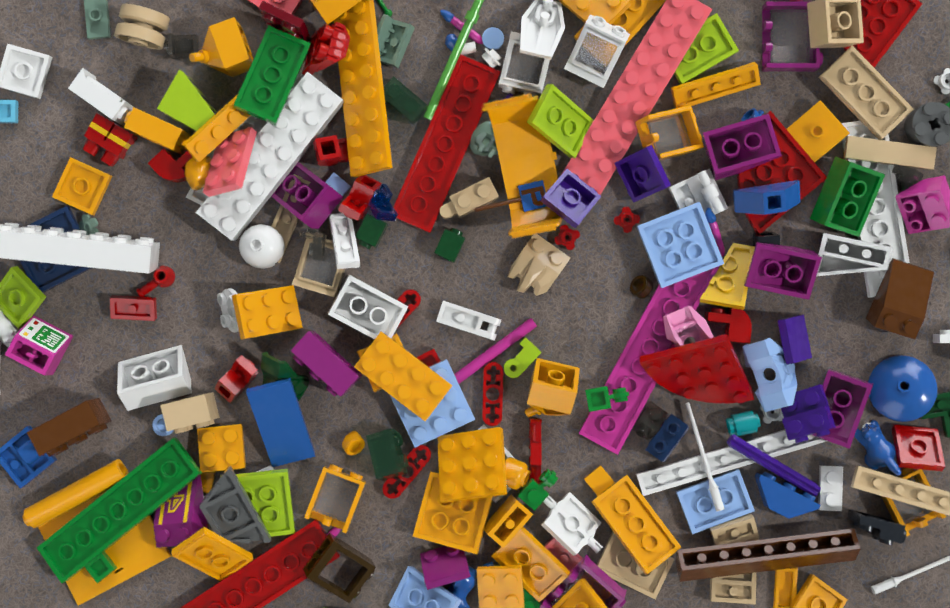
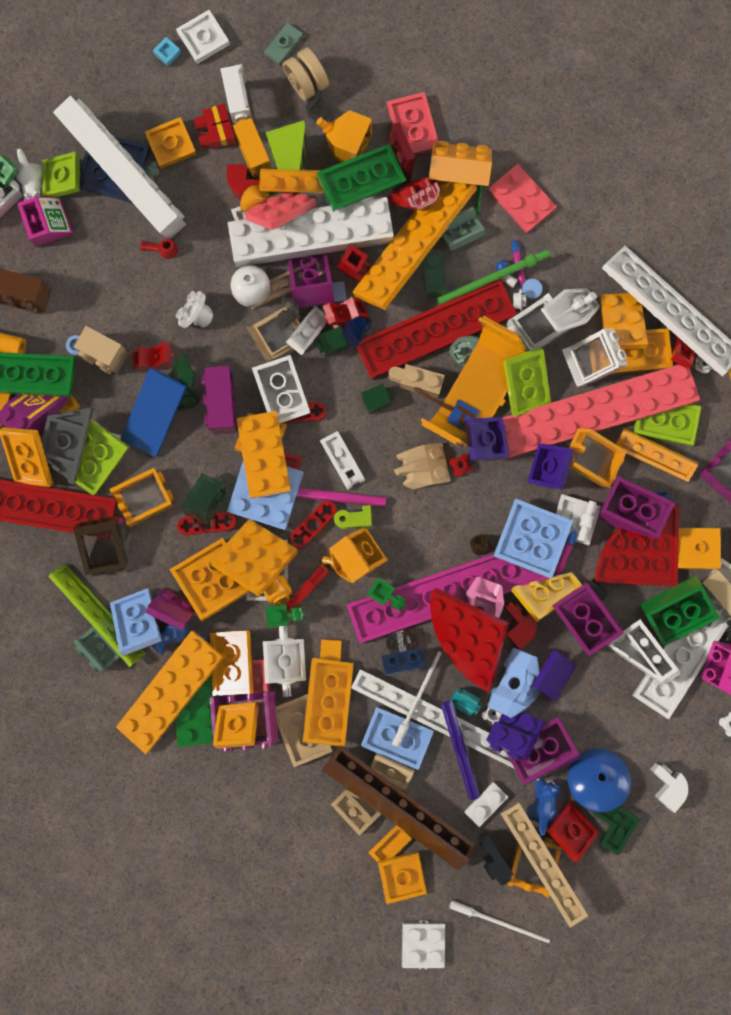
camera: 40 degrees right, 5 degrees down
(133, 308) = (129, 250): red plate -> none
(153, 378) = (98, 308): white slope -> none
(221, 448) = (99, 393): light orange plate -> none
(267, 312) = (213, 331): light orange plate -> none
(353, 443) = (188, 472): light orange tile -> none
(507, 521) = (242, 618): light orange brick -> none
(626, 213) = (516, 485): red plate -> none
(767, 198) = (622, 561): blue slope -> none
(783, 498) = (446, 779): blue slope -> none
(901, 299) = (654, 716): reddish brown slope -> none

